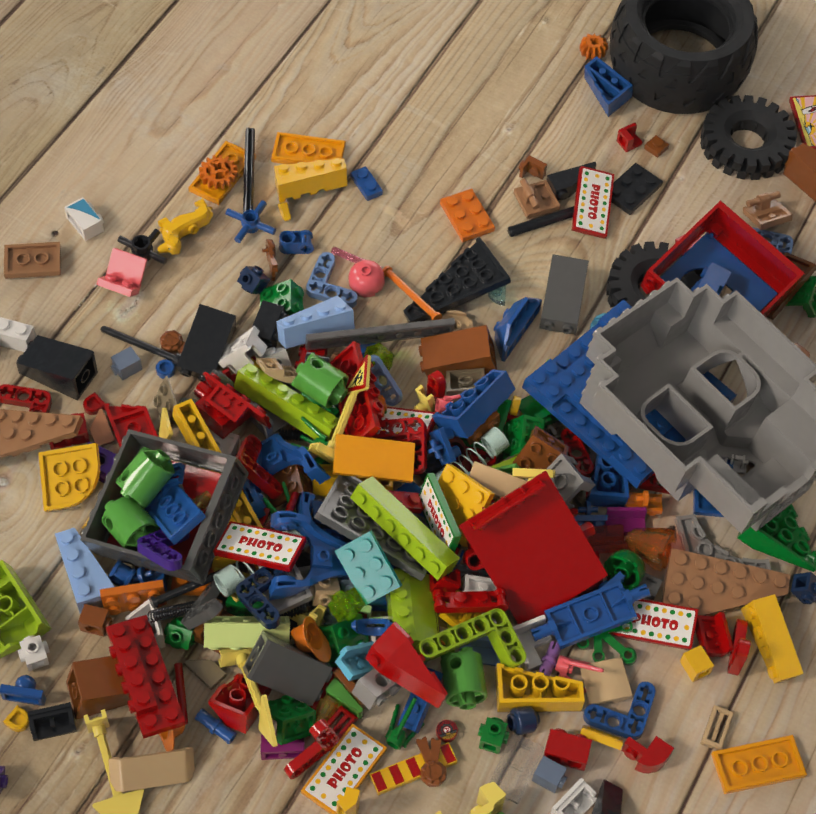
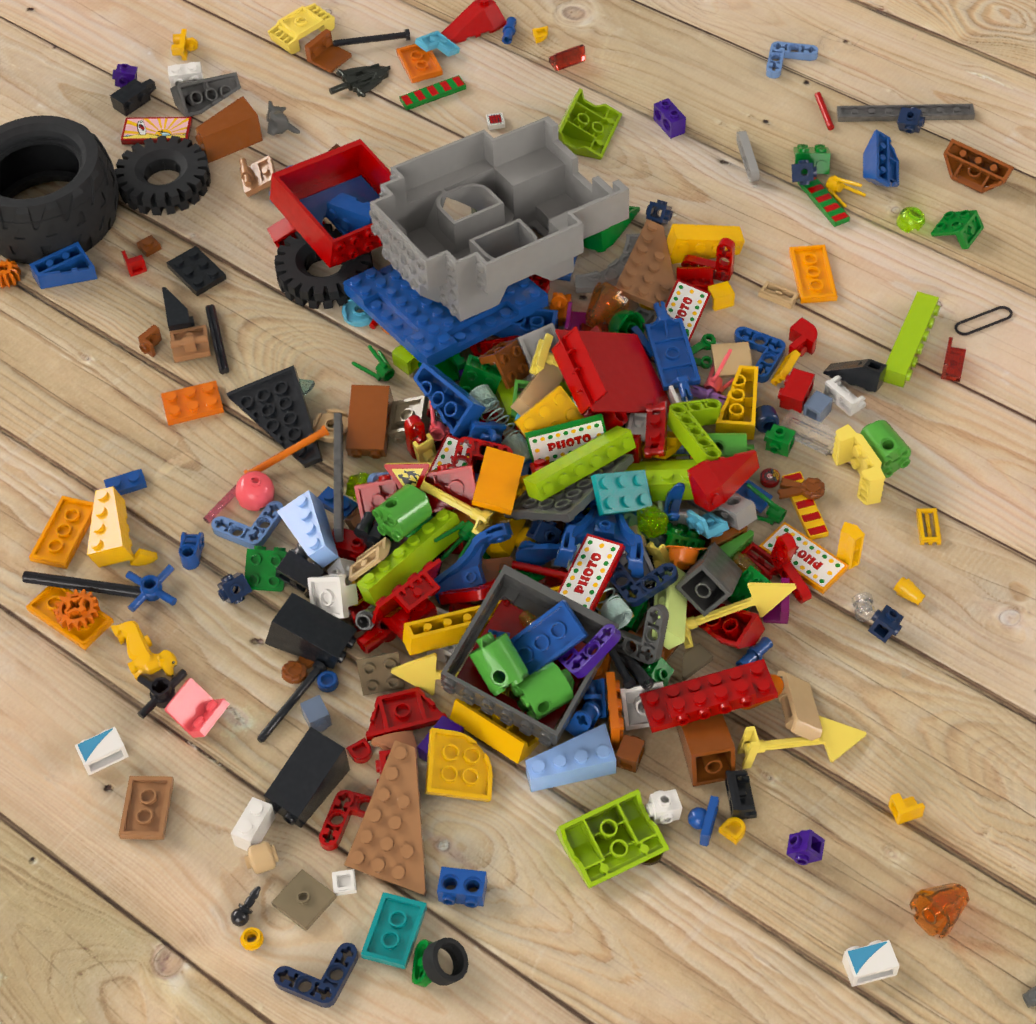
camera: 75 degrees left, 5 degrees down
(271, 253) = (198, 572): dark orange piece -> none
(515, 324) = (340, 373): blue wedge -> none
(531, 358) = (383, 369): none -> green plant
(564, 294) = (317, 333): dark grey slope -> none
(592, 202) = (210, 297): tile -> none

